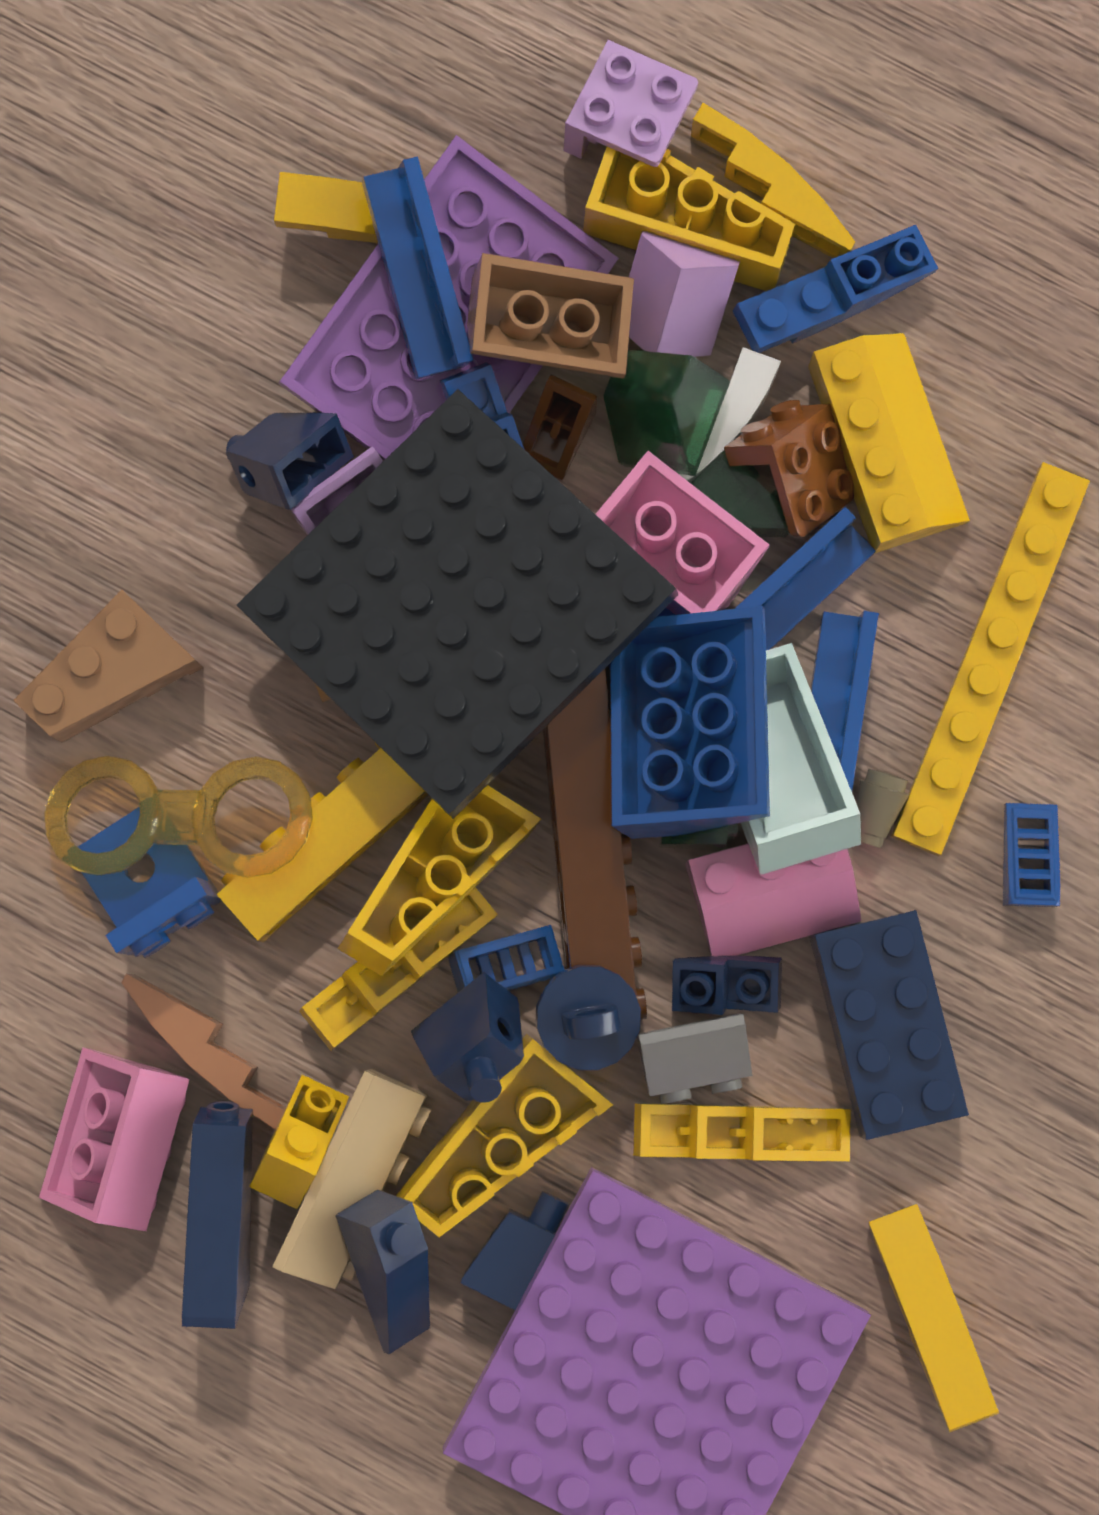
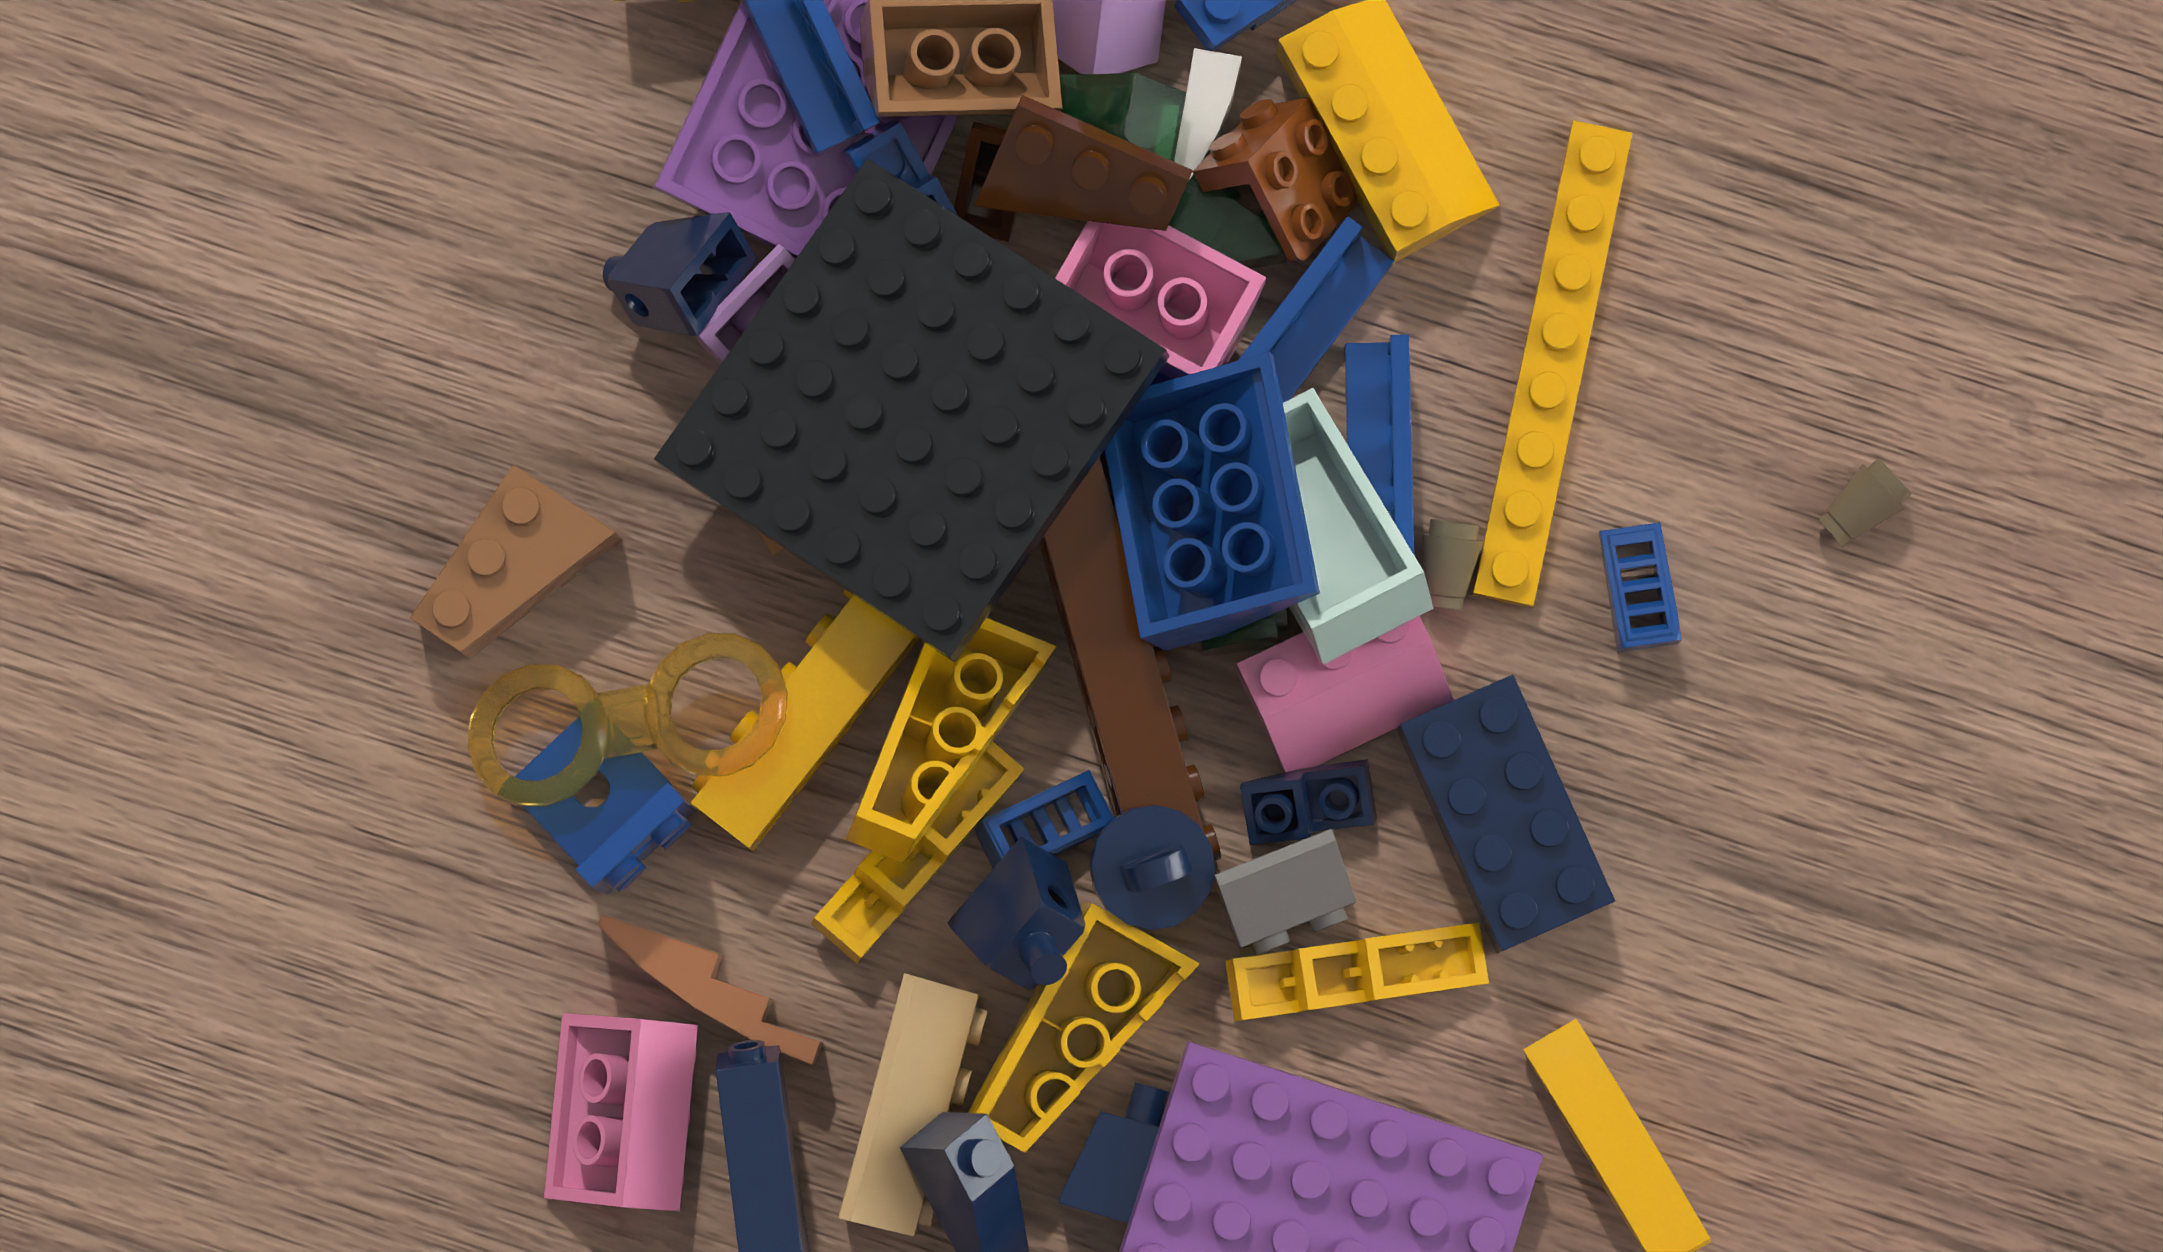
camera: 10 degrees left, 0 degrees up
(299, 1142) = (842, 1071): yellow slope -> none
(630, 430) = (1079, 173): none -> reddish brown wing

